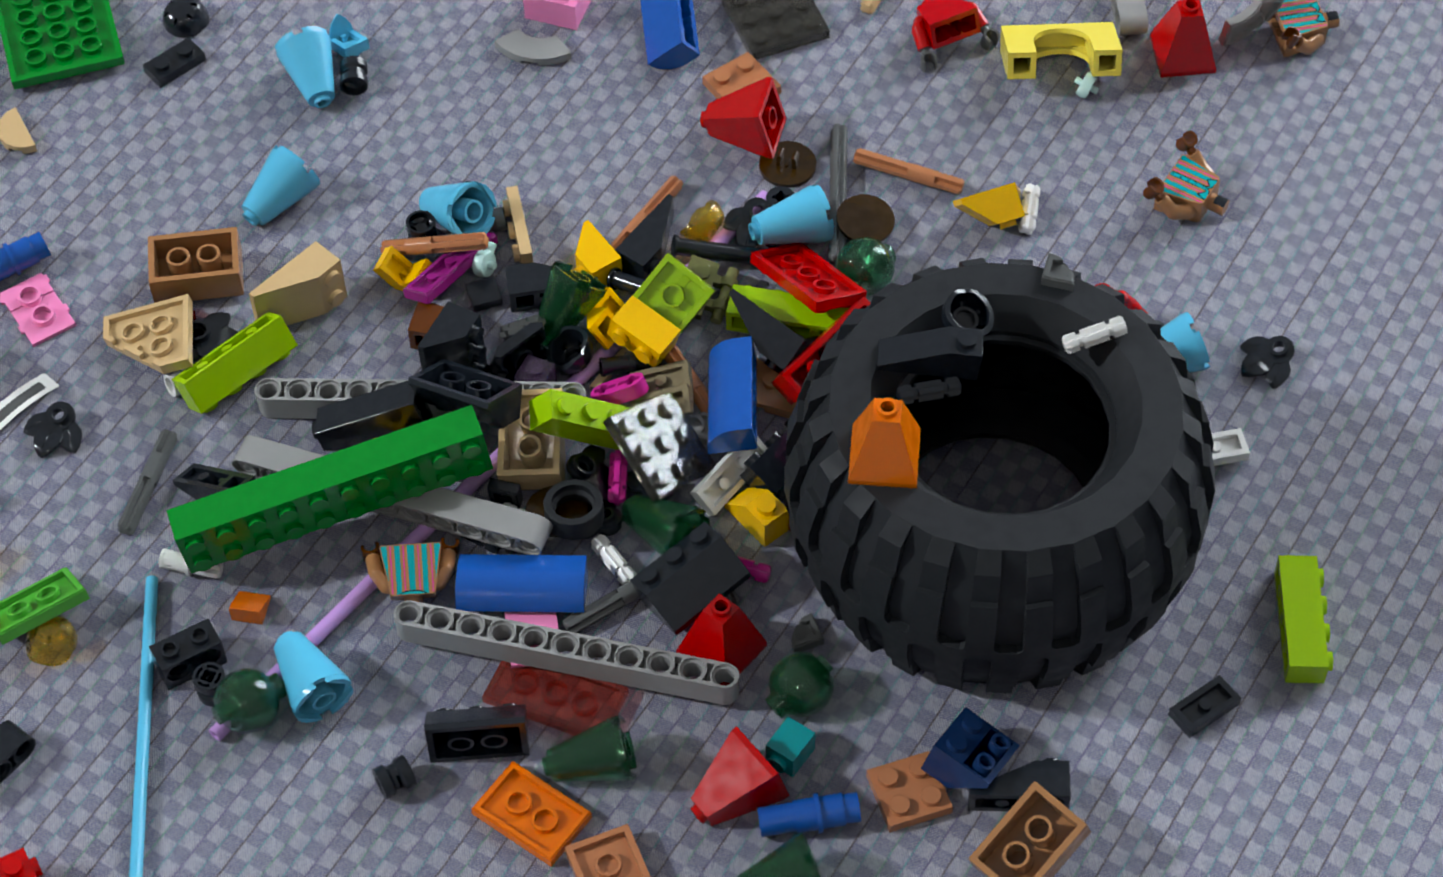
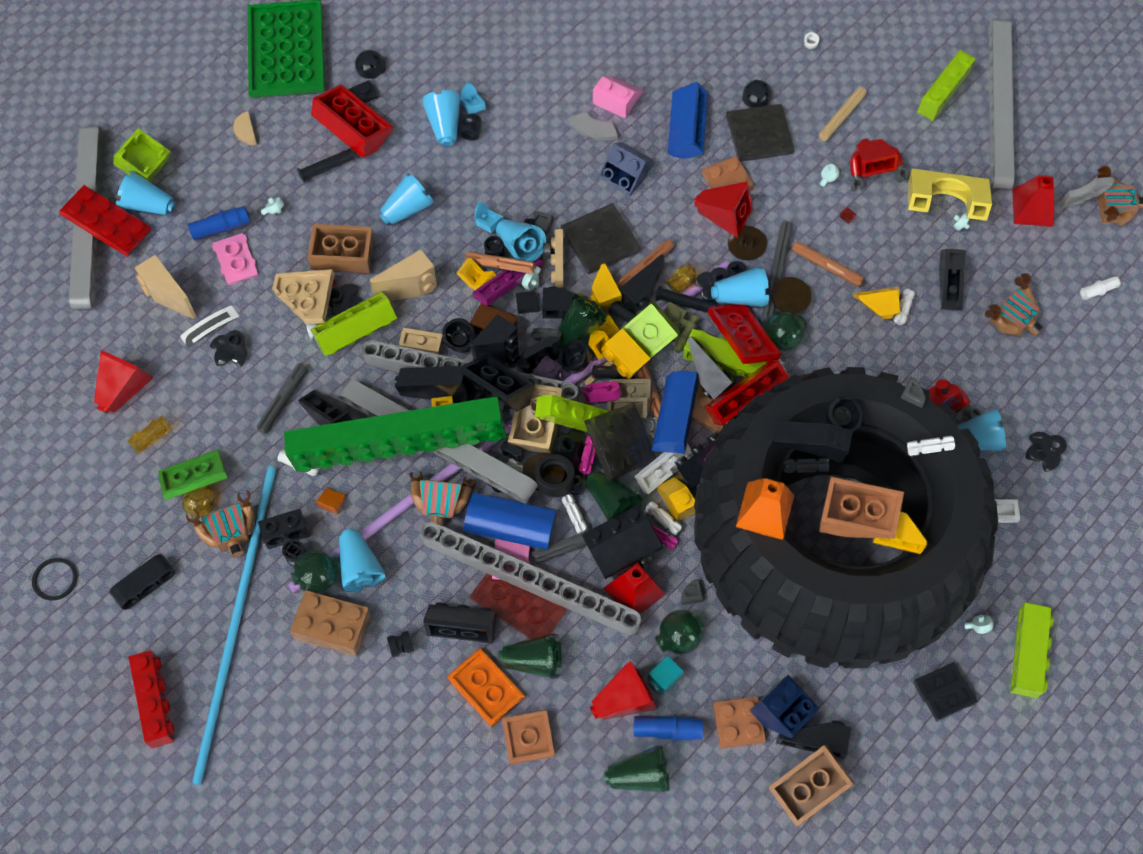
camera: 10 degrees right, 10 degrees up
(81, 228) = (274, 205): none -> light aqua piece
(103, 667) = (227, 527): none -> medium nougat torso
(147, 160) = (325, 164): none -> black pin
(173, 93) = (351, 120): none -> red slope
(285, 767) = (330, 623): none -> medium nougat brick
(339, 367) = (421, 340): none -> tan plate
(394, 359) = (459, 340): none -> black helmet
(401, 192) = (486, 218): none -> medium azure plate
(490, 179) = (543, 221): none -> dark grey tile
(574, 190) = (600, 238): none -> clear smoke plate
(590, 93) = (625, 168): none -> dark blue slope
(745, 543) = (663, 518): none -> white axle
(886, 54) = (829, 174): none -> light aqua piece
(923, 104) = (847, 215): none -> clear red piece
(1013, 426) = (860, 510): none -> nougat slope
(1073, 448) = (906, 537): none -> yellow slope
(1088, 158) = (952, 278): none -> black slope
(1179, 682) = (938, 681): none -> black plate
(1224, 599) = (981, 624): none -> light aqua piece
(1297, 138) = (1099, 288): none -> white axle

